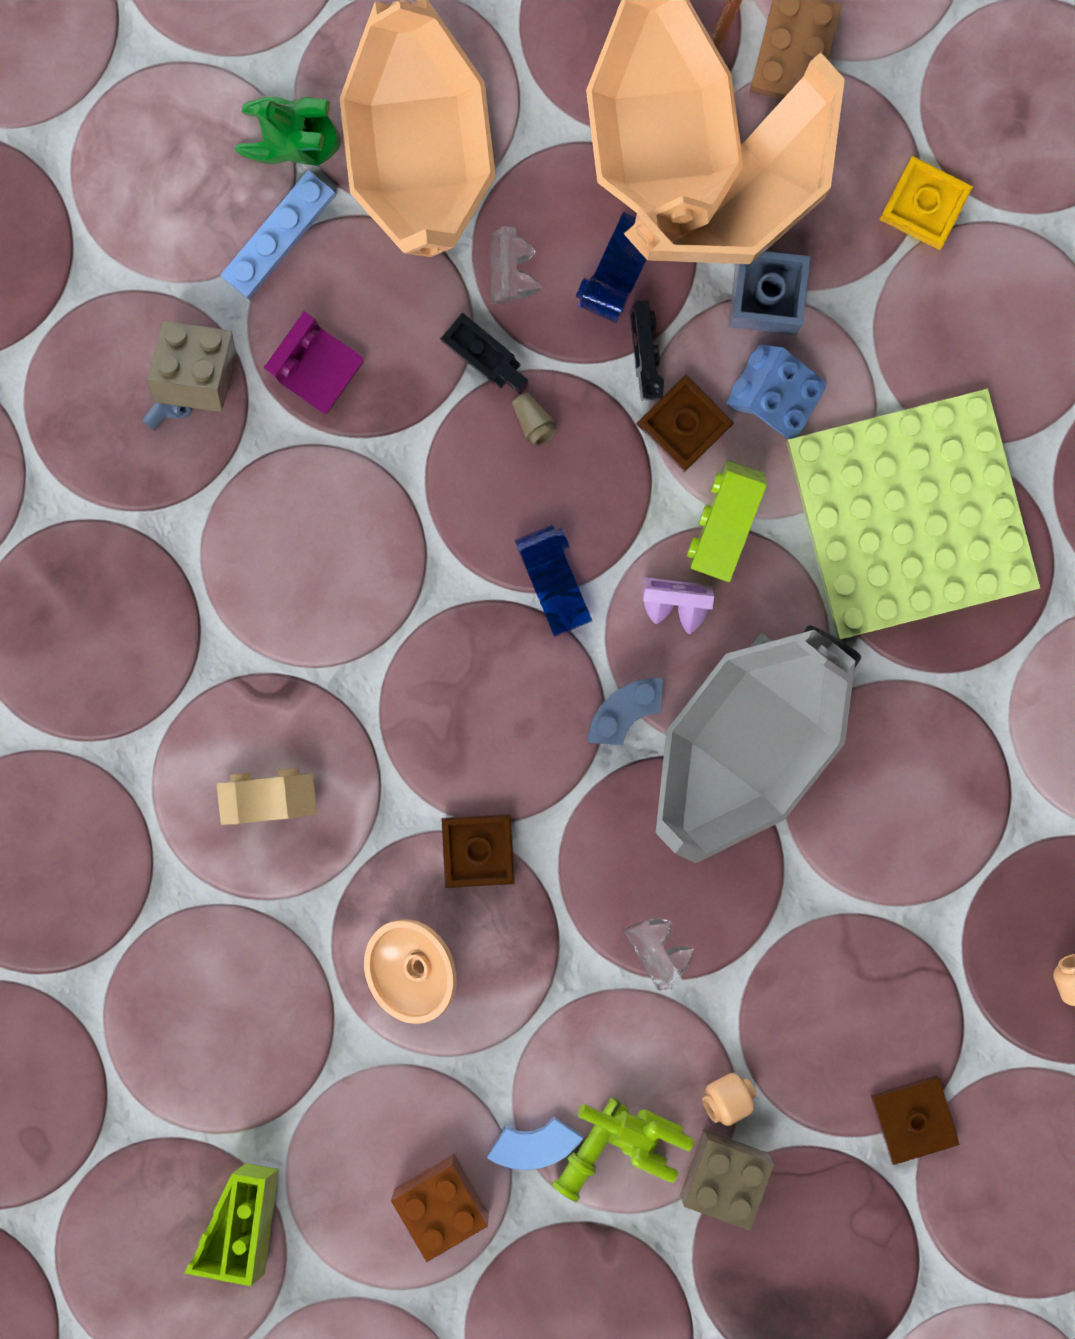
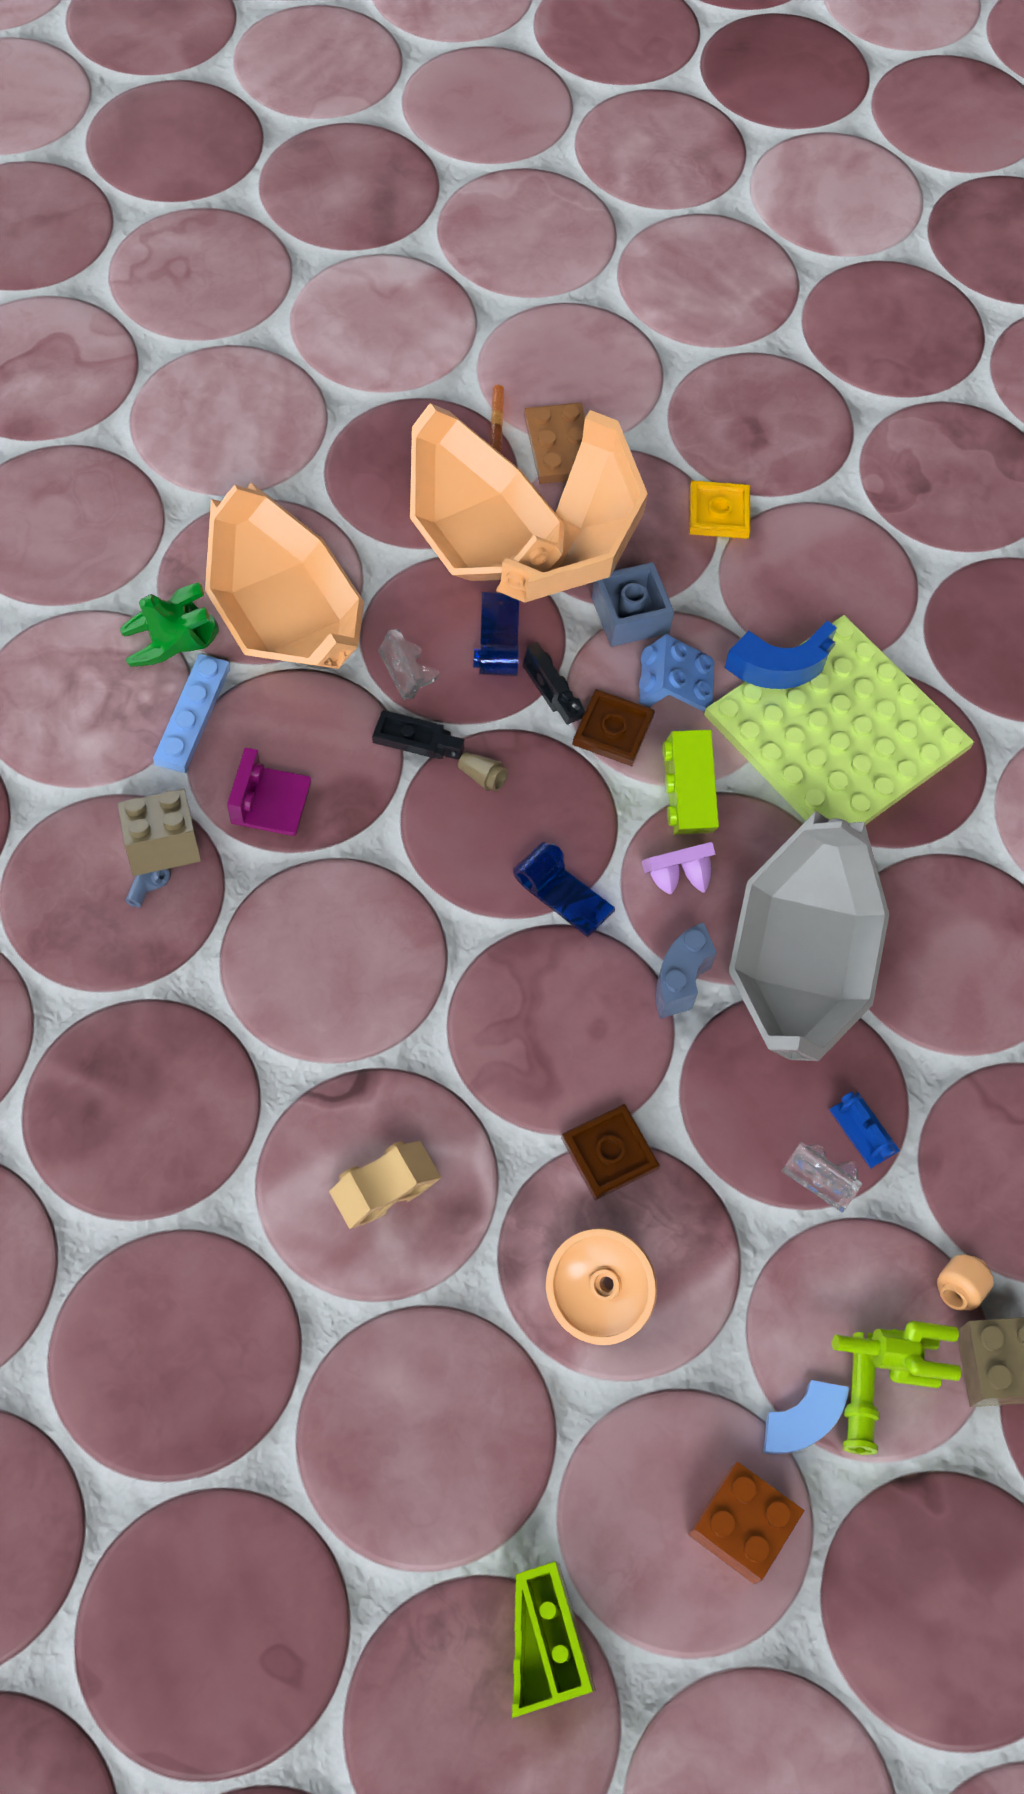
camera: 25 degrees left, 25 degrees down
(716, 927) = (864, 1129): none -> blue hinge
(875, 430) = (778, 667): none -> blue arch

